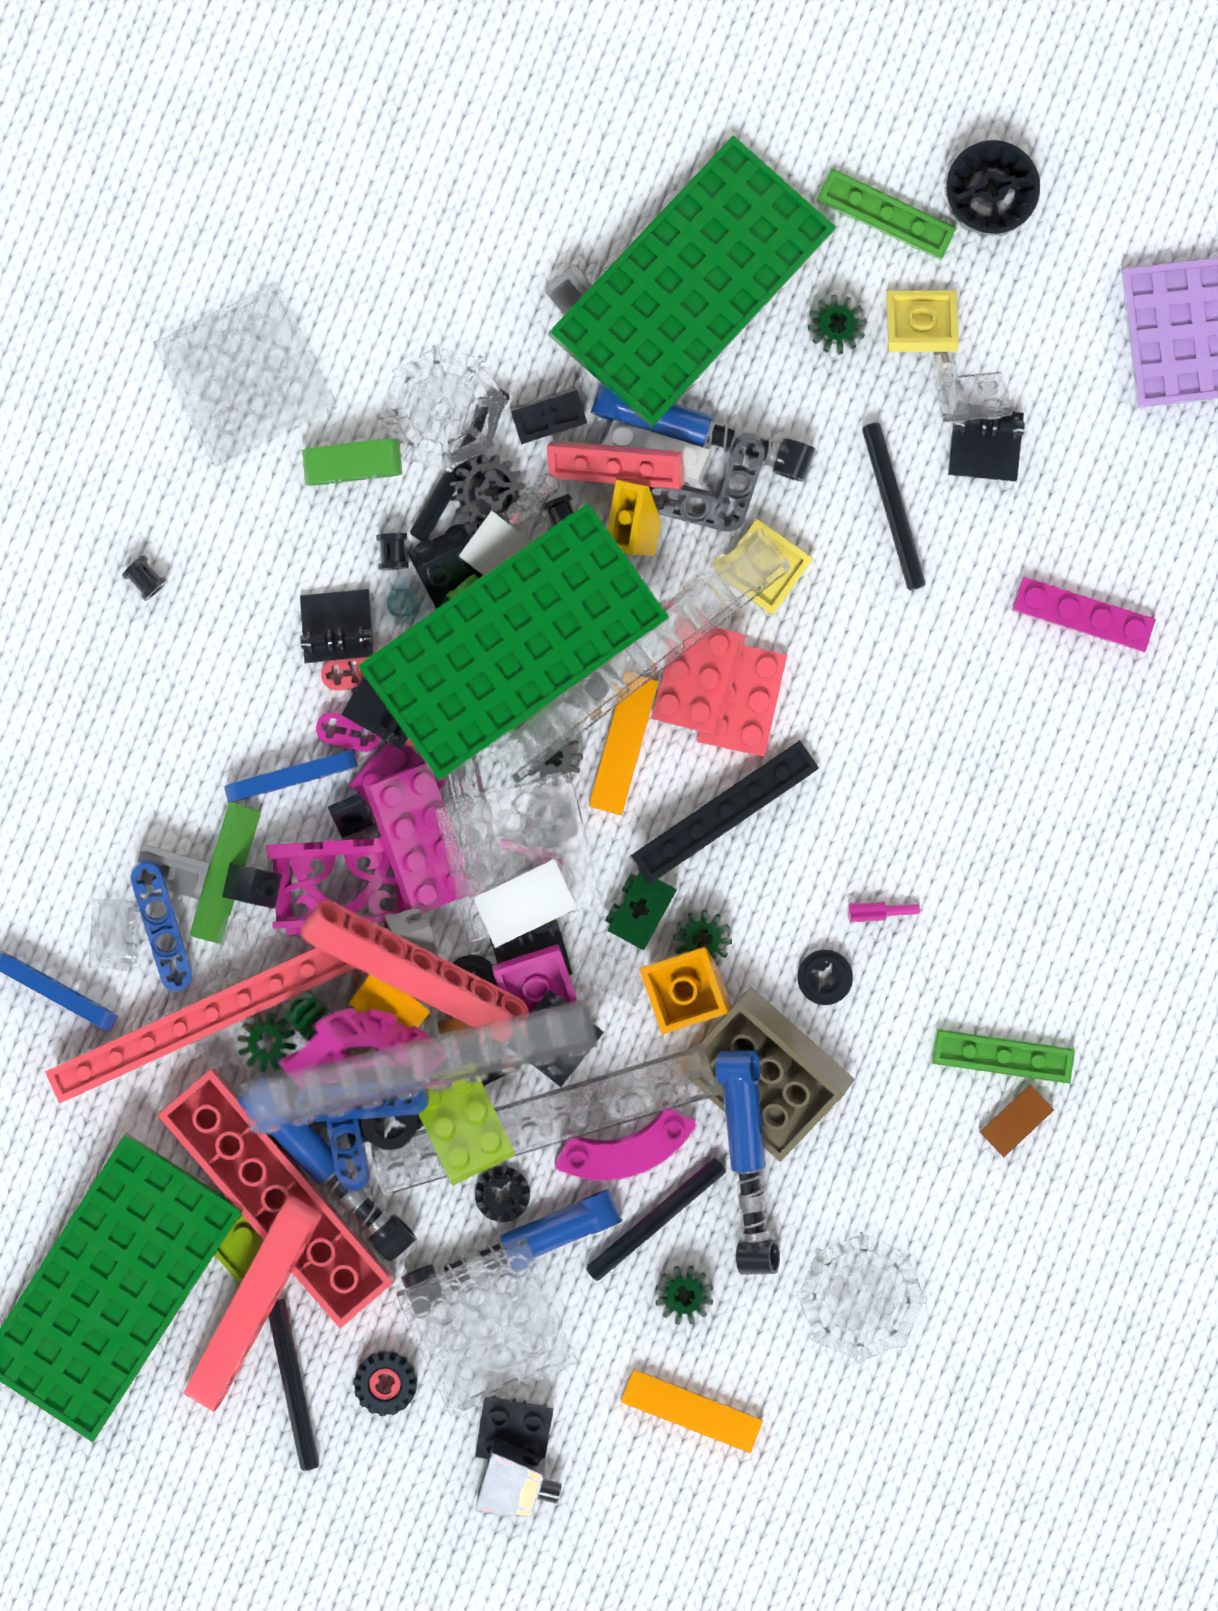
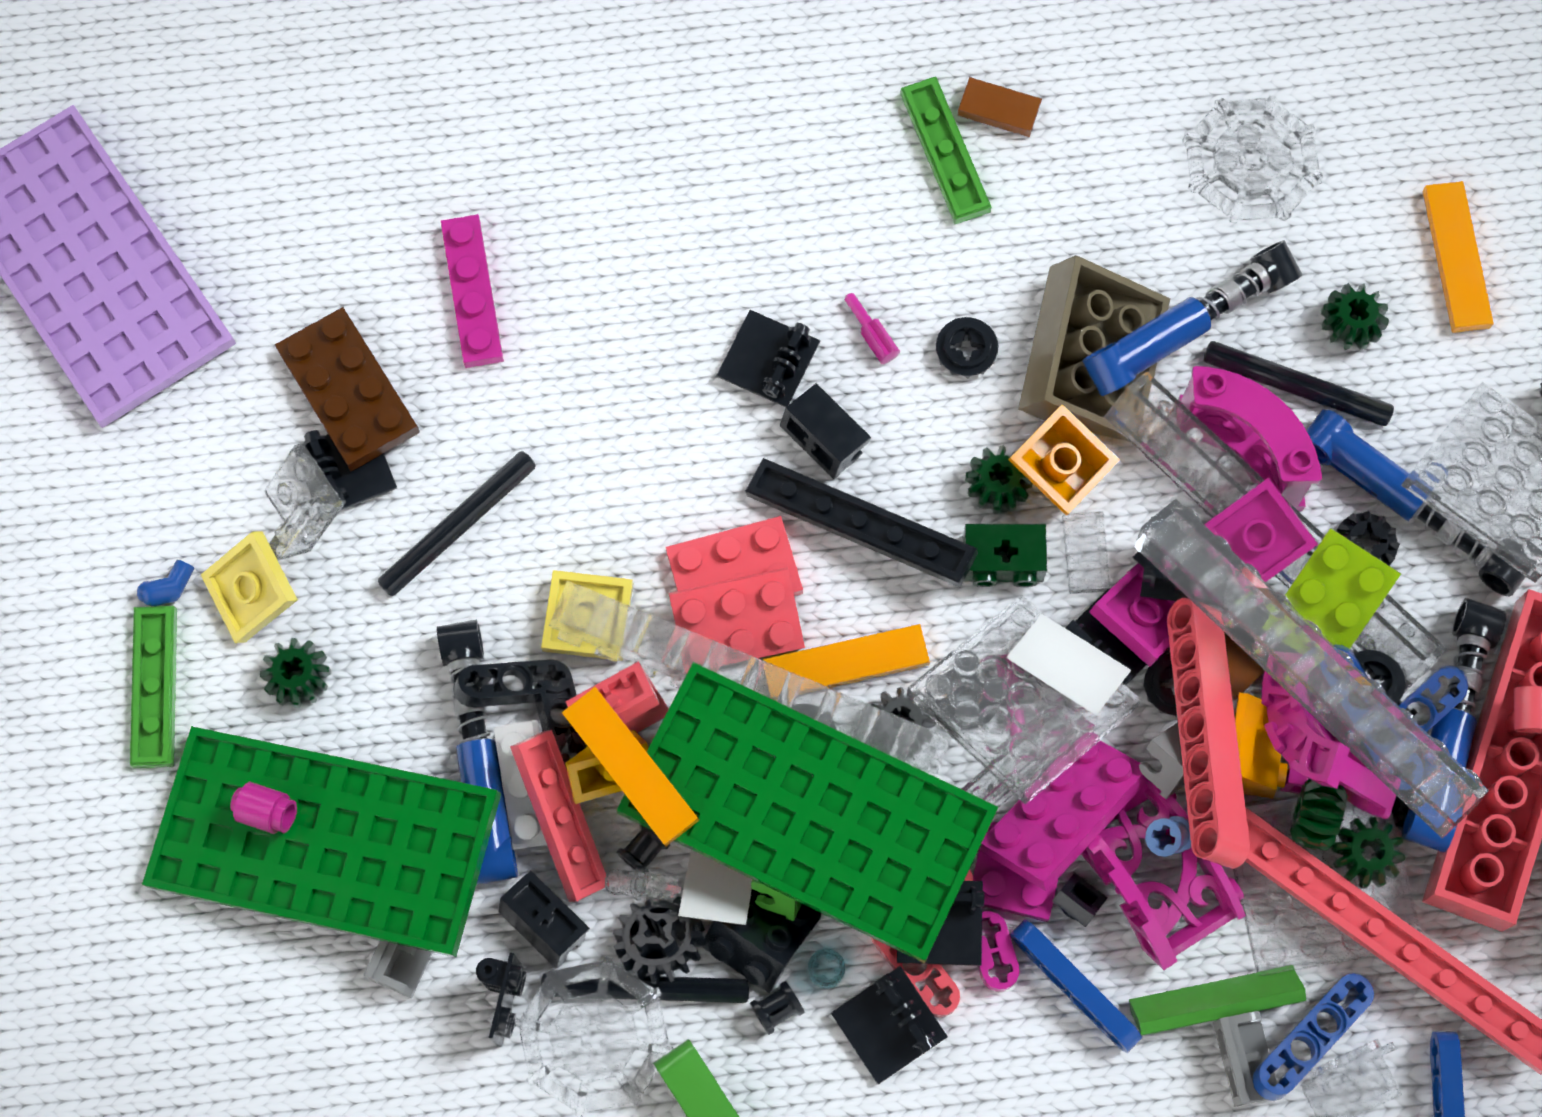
camera: 125 degrees left, 15 degrees down
(252, 885) = (1215, 961): black brick -> none
(355, 896) = (1161, 844): none -> medium blue bush
(515, 364) = (507, 980): none -> black hinge
(540, 1099) = (1263, 530): none -> dark pink plate
(613, 528) = (630, 766): none -> light orange tile
(673, 546) = (631, 697): none -> coral bracket
(735, 249) = (263, 808): none -> dark pink brick
(814, 827) = (824, 430): none -> black hinge
(900, 817) = (769, 358): none -> black hinge
(958, 260) = (167, 589): none -> blue arm
(1021, 180) = (47, 574): black gear -> none
(1050, 475) = (347, 389): none -> reddish brown plate

